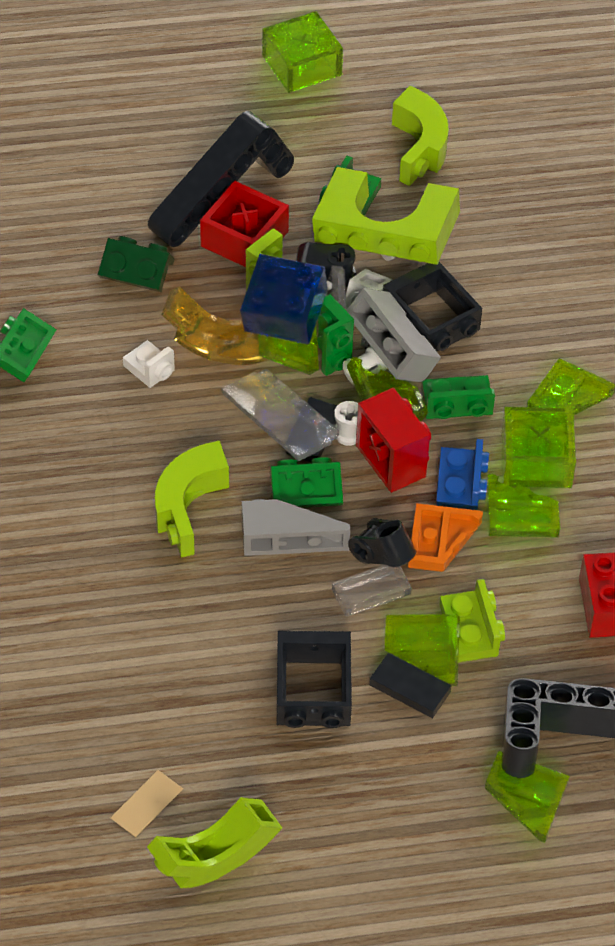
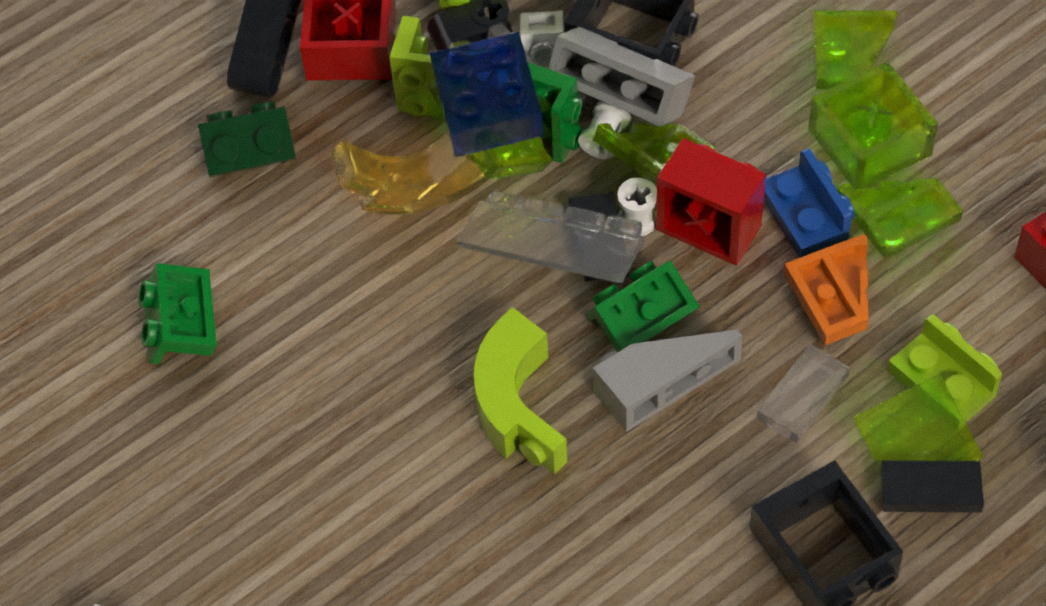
camera: 25 degrees left, 5 degrees up
(150, 363) = (350, 253): white bracket -> none
(383, 544) = (788, 329): black piece -> none
(458, 397) = (733, 111): green bracket -> none

